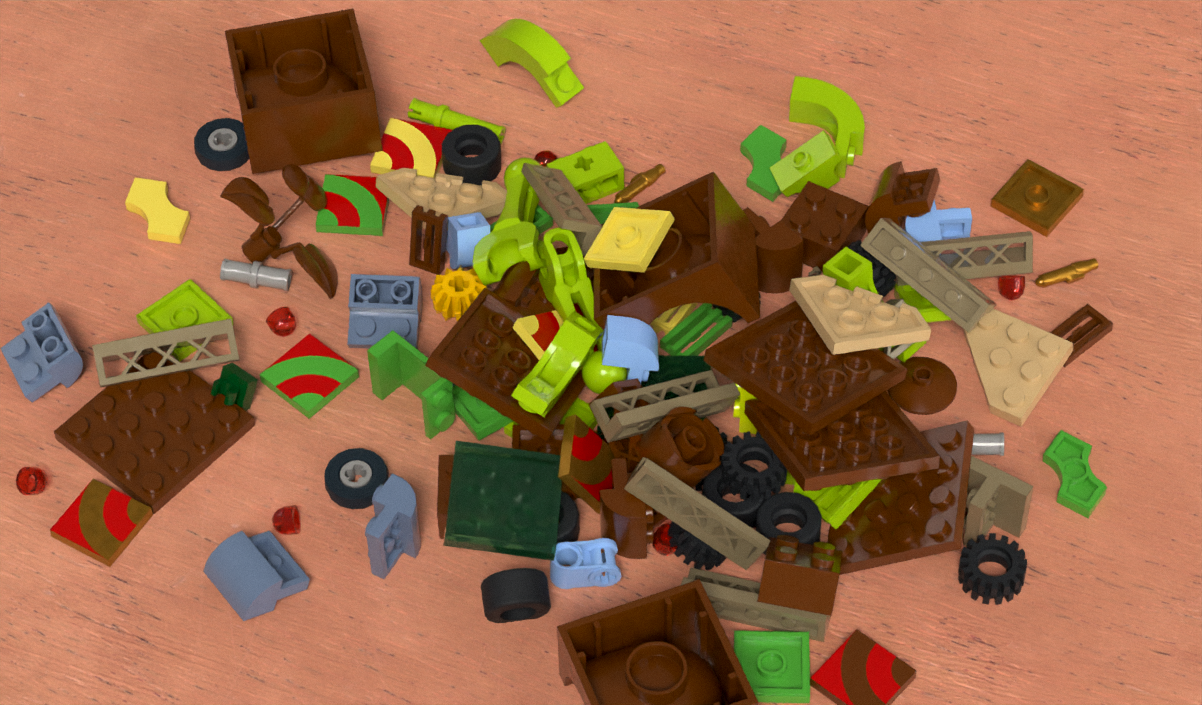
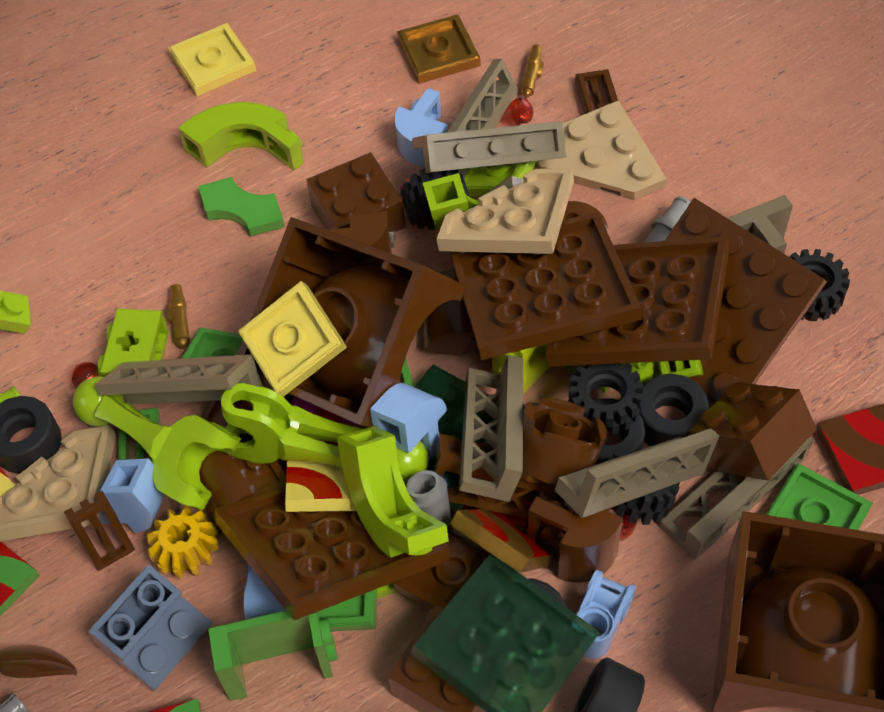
camera: 55 degrees left, 5 degrees up
(579, 395) = (430, 495): none -> light grey cone
(809, 162) = (285, 172): lime brick -> none
(895, 59) = (212, 59): none -> light yellow tile
(902, 194) = (378, 125): reddish brown brick -> none
(1079, 486) = (756, 180): bright green tile -> none

